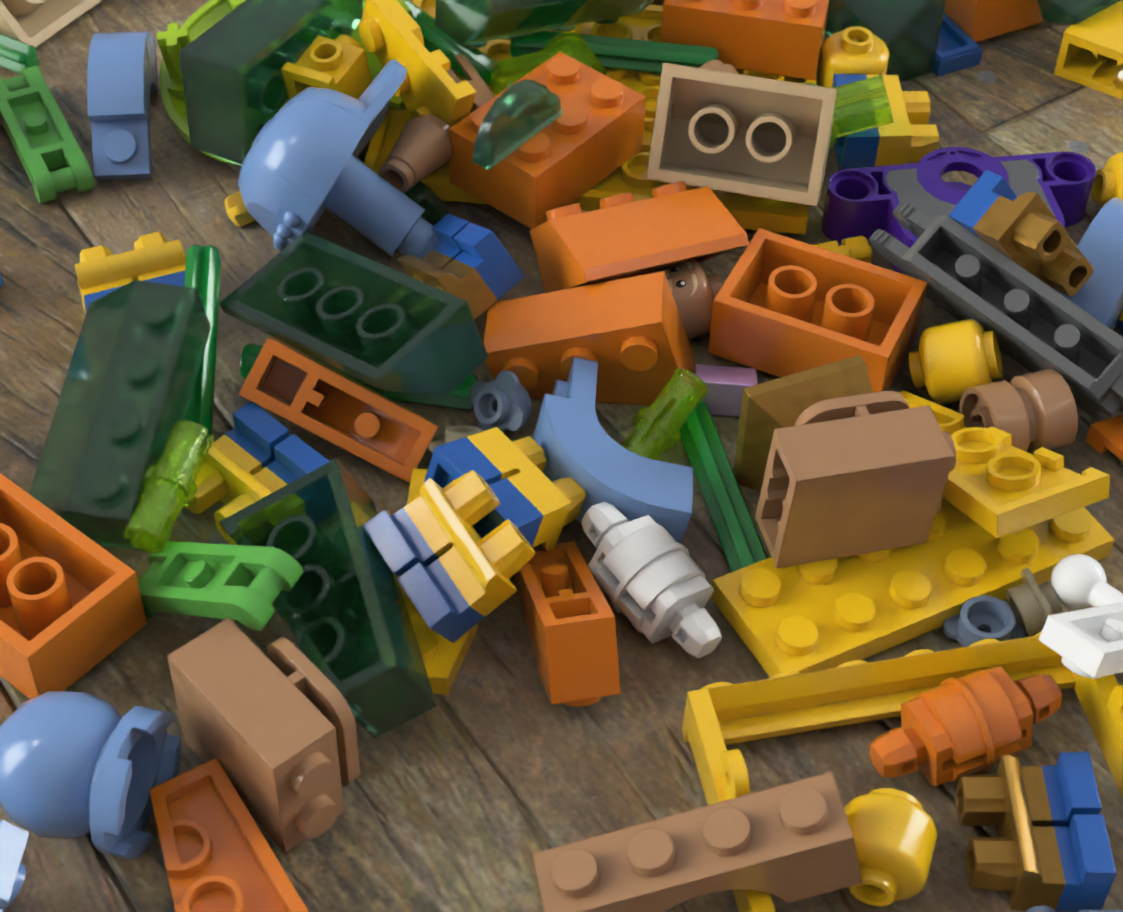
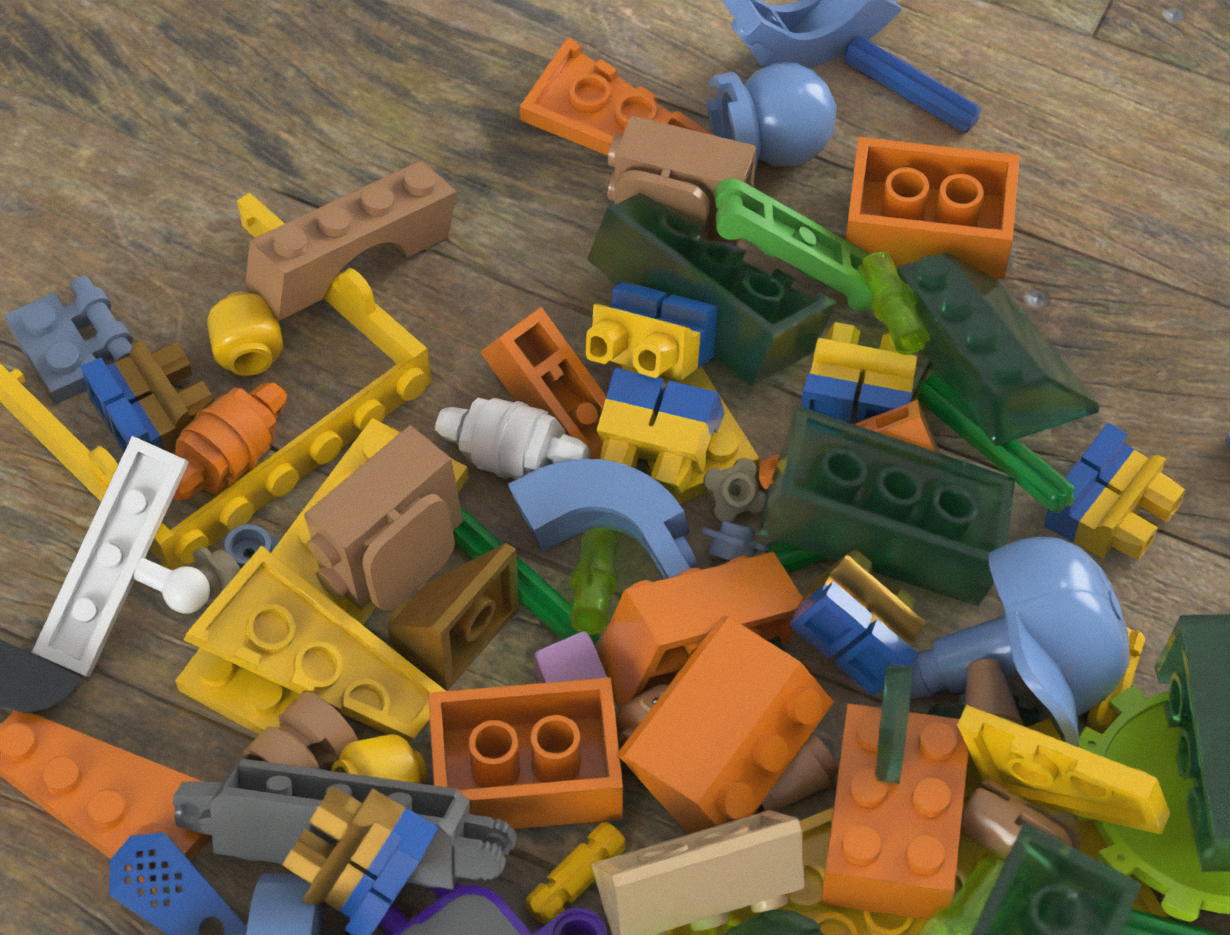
camera: 150 degrees right, 10 degrees up
(330, 65) = (1154, 742): yellow brick -> none

